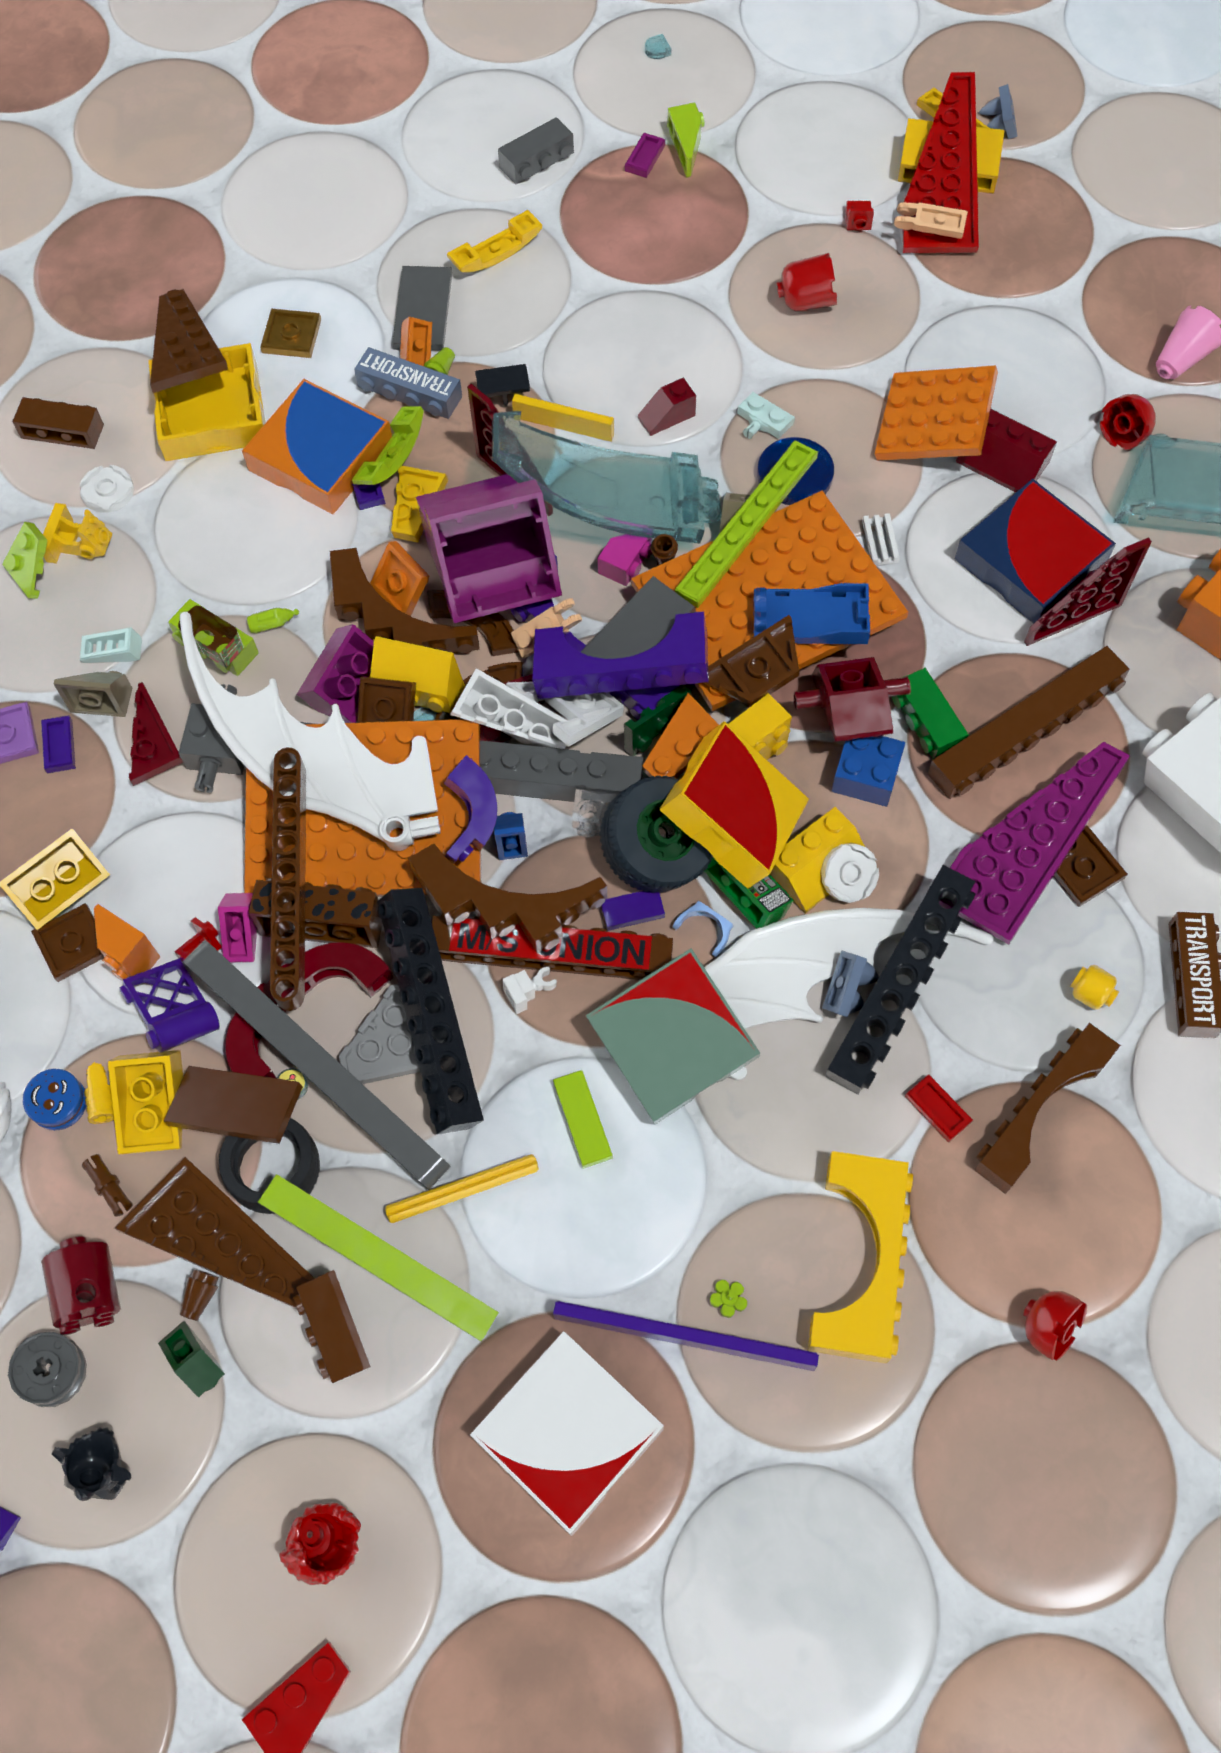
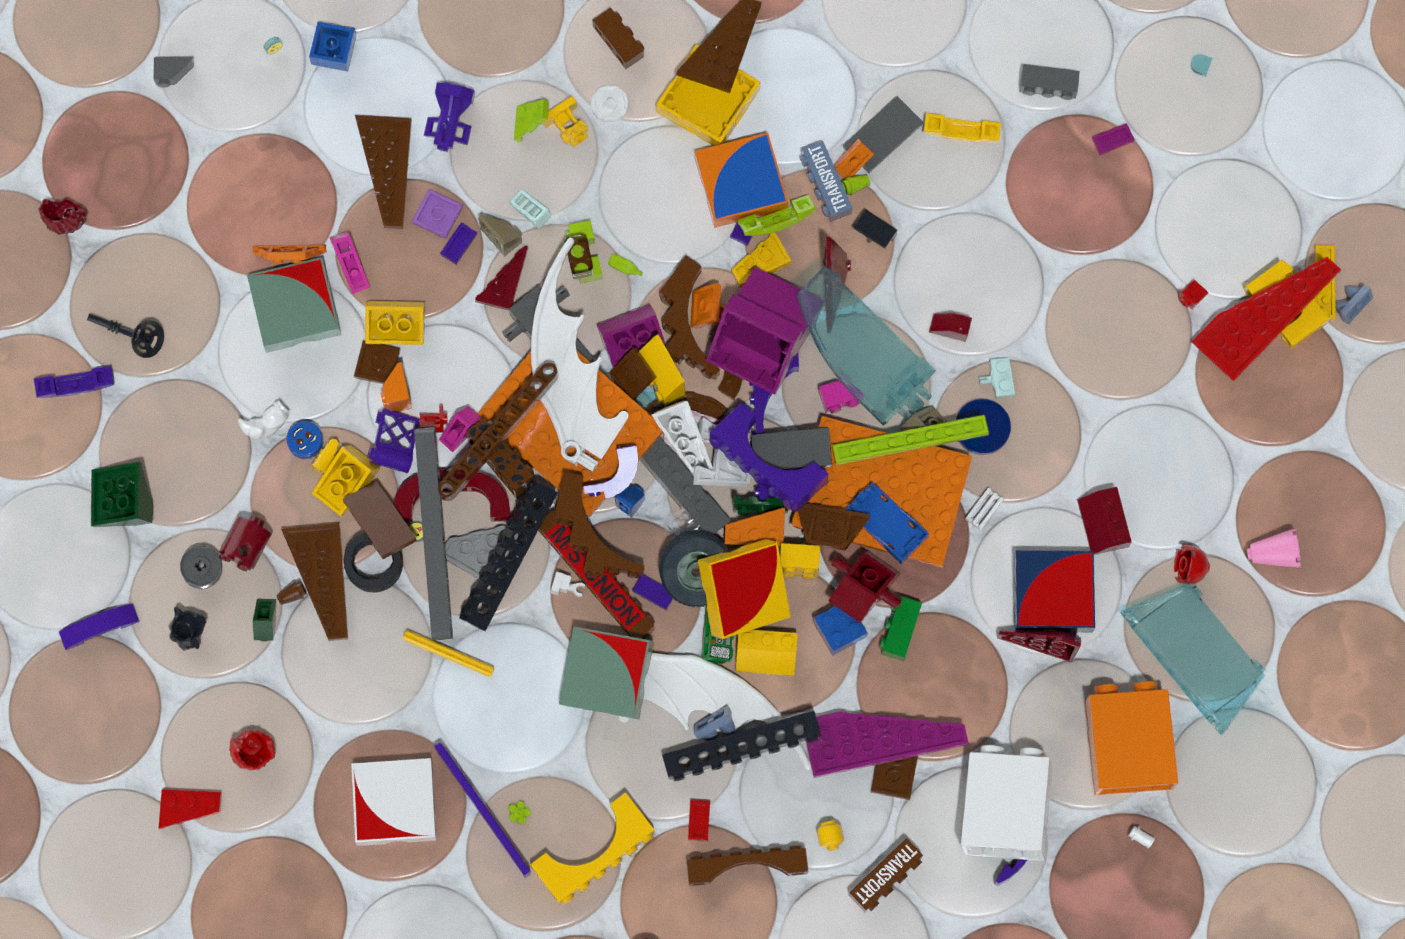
camera: 40 degrees right, 10 degrees up
(107, 1185) = (294, 504): reddish brown pin -> none
(290, 333) = (795, 86): pearl gold tile -> none
(331, 1327) = (334, 663): reddish brown slope -> none
(378, 1257) = (382, 650): lime tile -> none
(550, 618) = (752, 401): light nougat hinge -> none
(564, 417) = (888, 280): yellow tile -> none
(582, 1119) = (532, 672): lime tile -> none
(664, 548) = (858, 408): reddish brown cone -> none
(685, 130) = (1150, 148): lime slope -> none
(701, 909) = (685, 621): light blue cap -> none
(808, 283) = (1107, 318): red cylinder -> none
(849, 872) = (773, 672): white tile -> none
(931, 219) = (1220, 342): light nougat hinge -> none
(936, 413) = (1088, 464): orange plate -> none
(1028, 722) = (947, 679): reddish brown brick -> none

